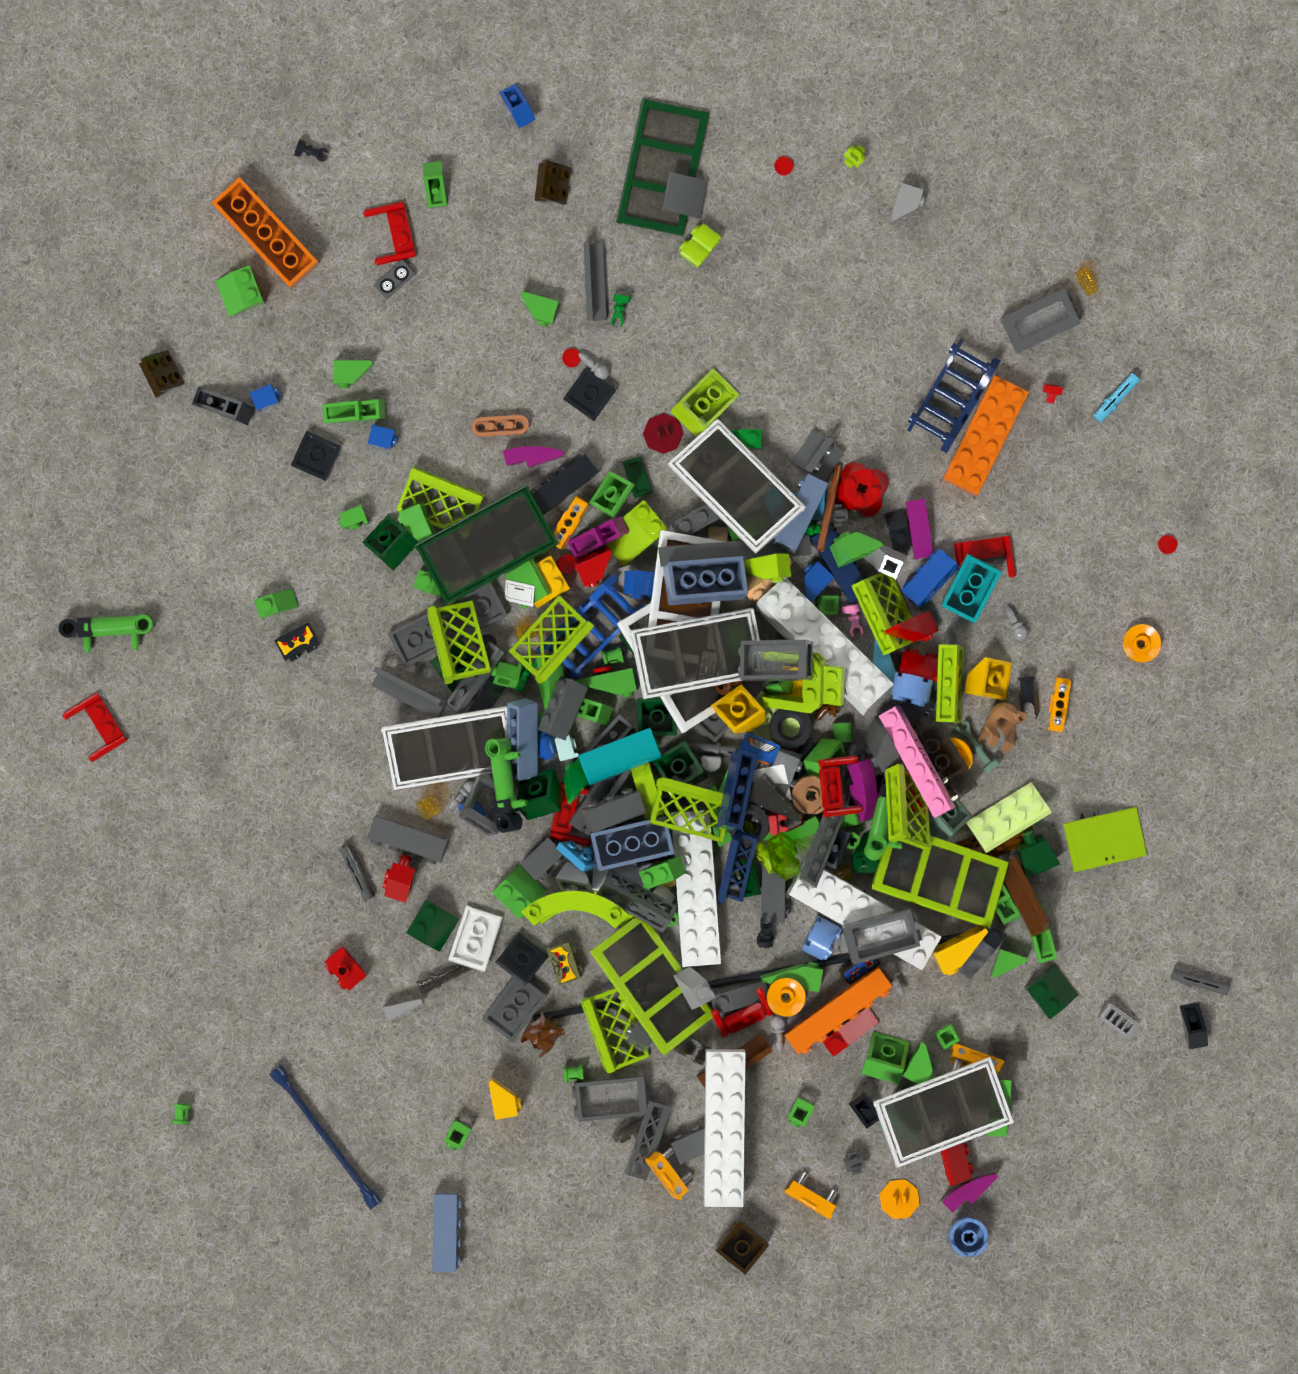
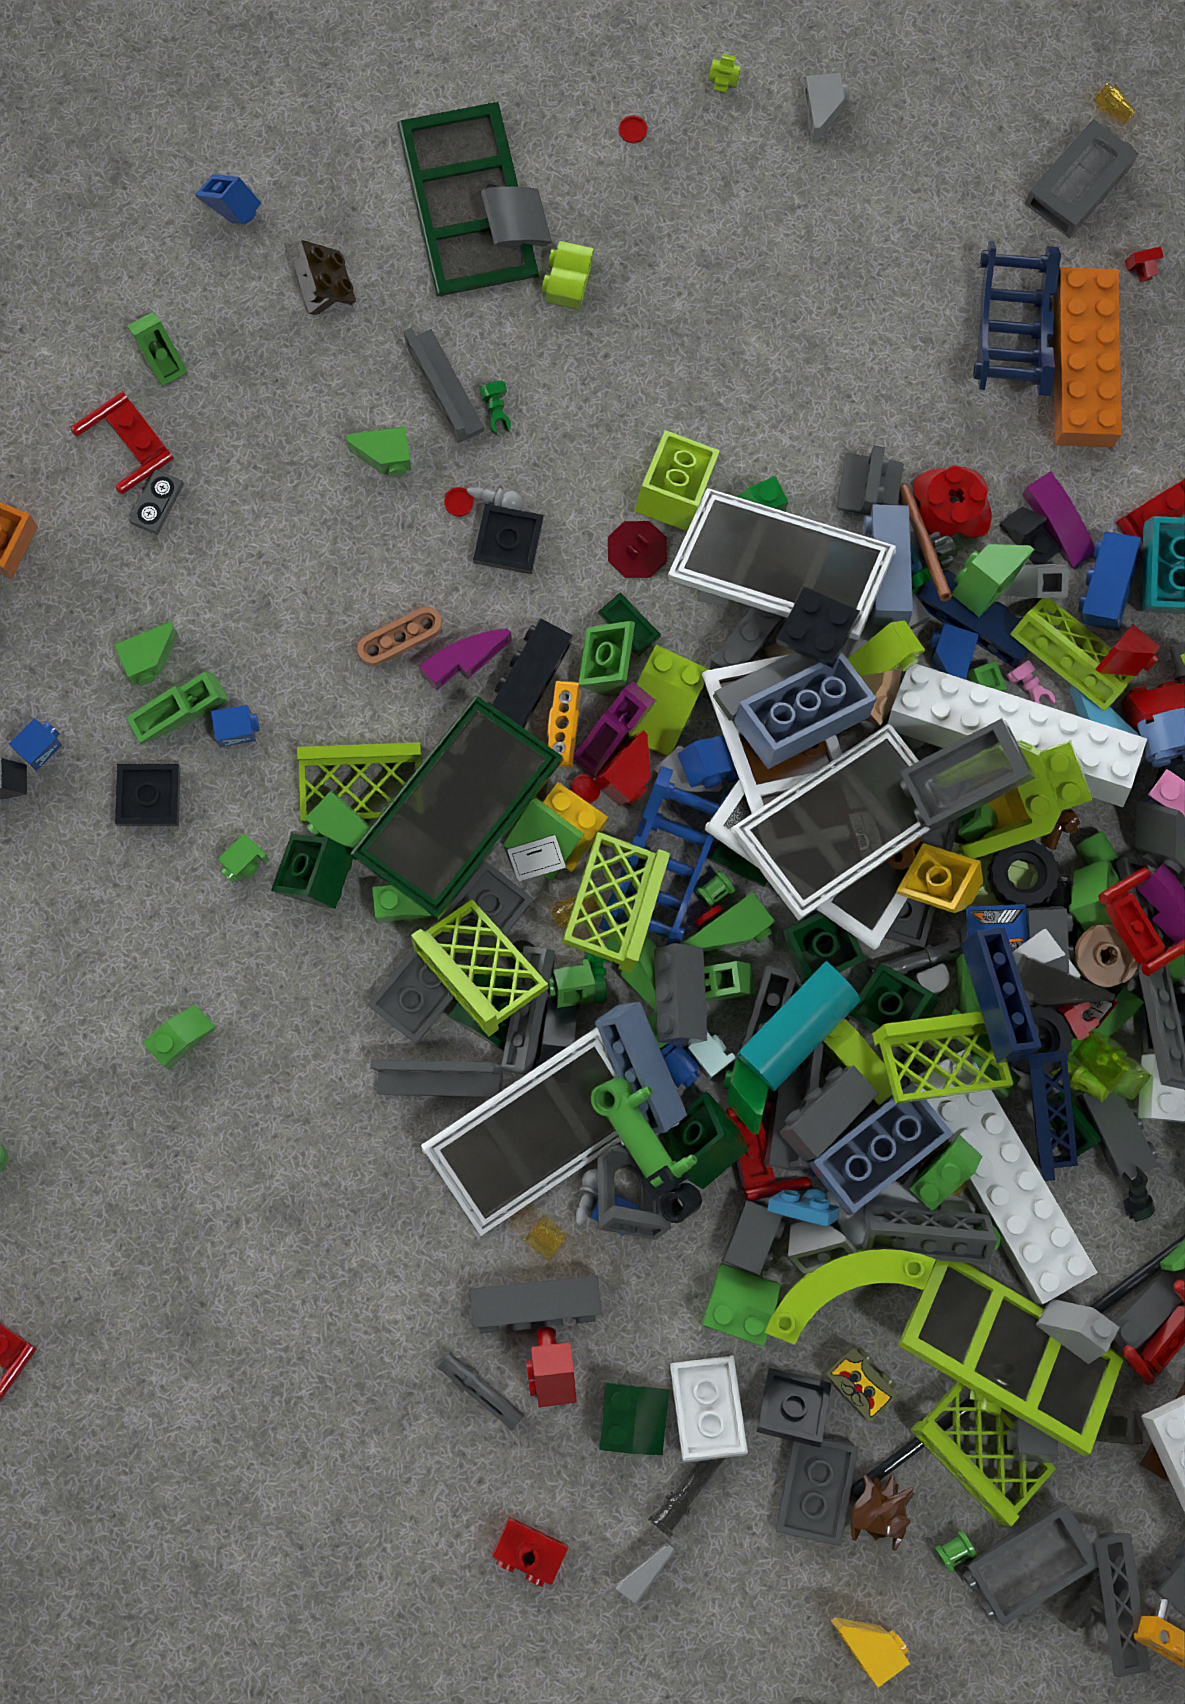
camera: 30 degrees left, 10 degrees down
(297, 642) = (236, 1079): brick -> none
(735, 536) = (818, 627): none -> black plate

